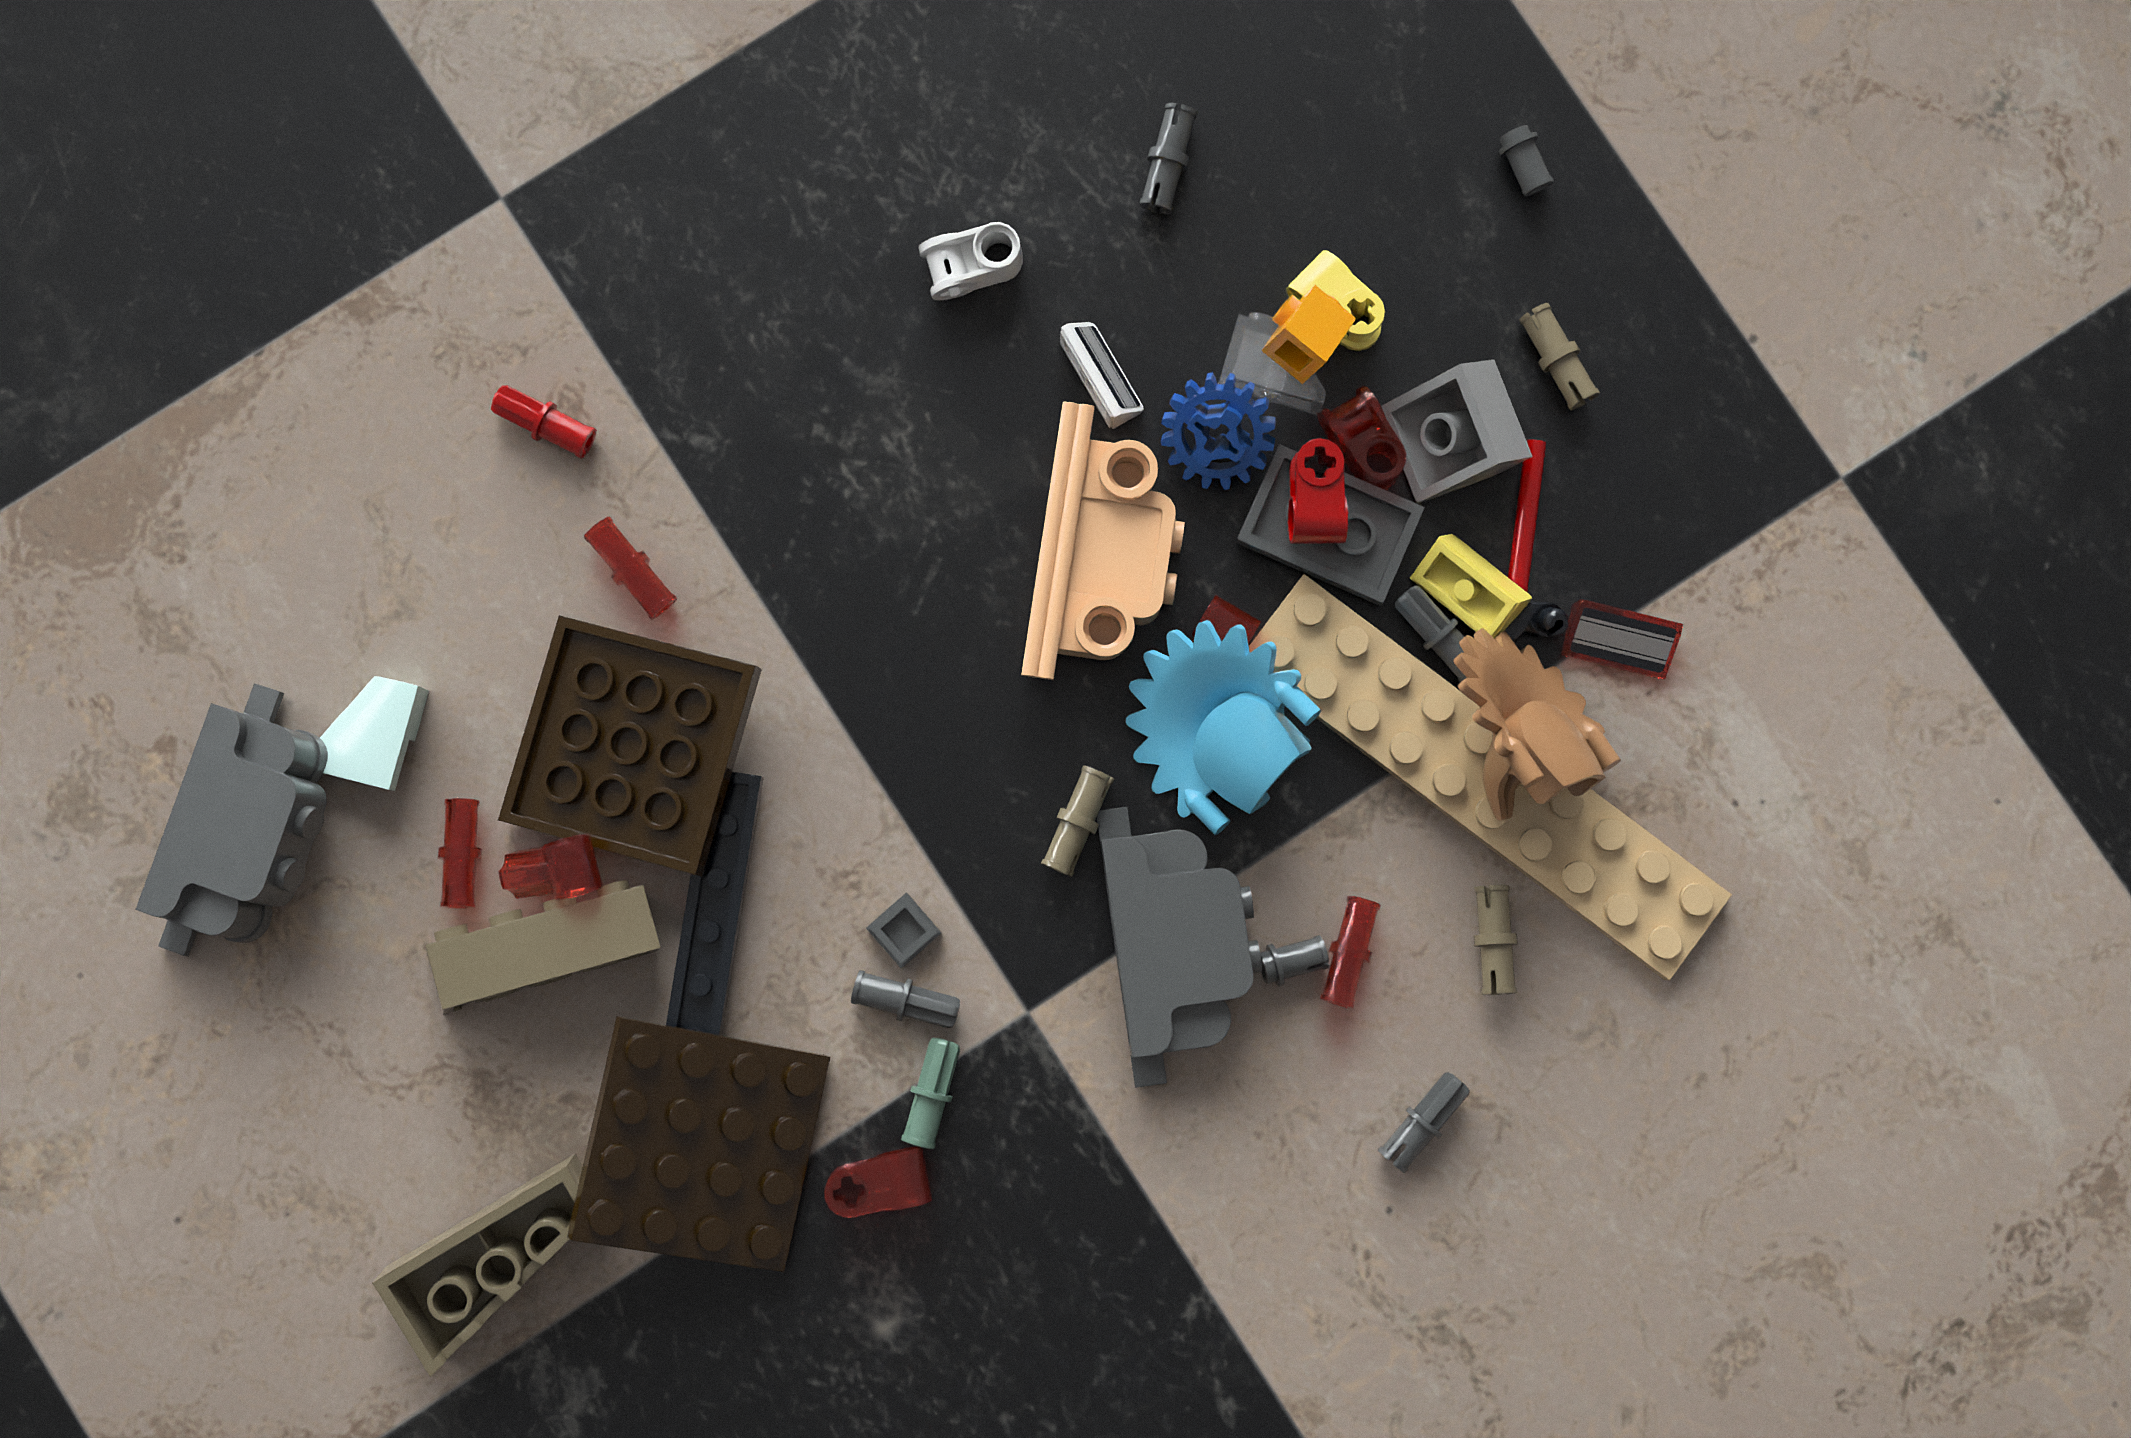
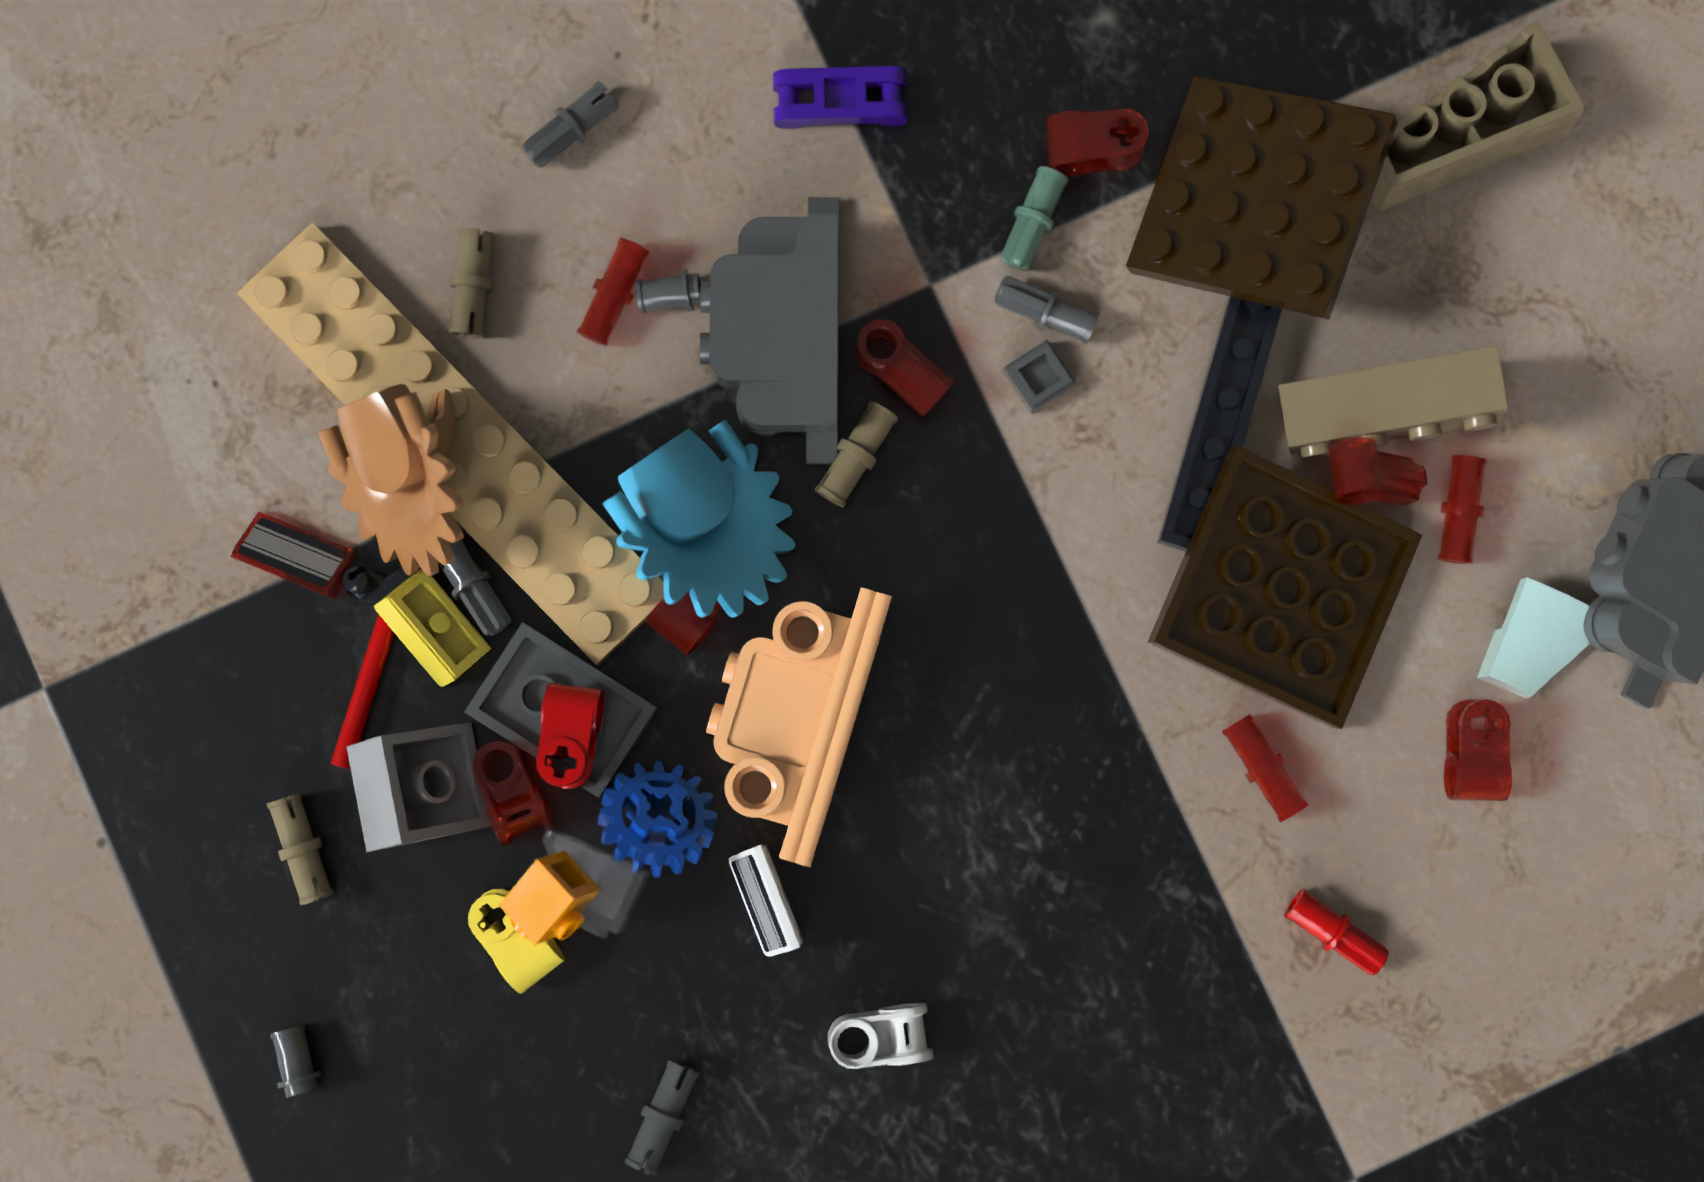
camera: 165 degrees left, 0 degrees up
(419, 603) = (1477, 759): none -> clear red piece
(1039, 912) = (906, 371): none -> clear red piece
(1150, 1195) = (840, 96): none -> dark purple plate

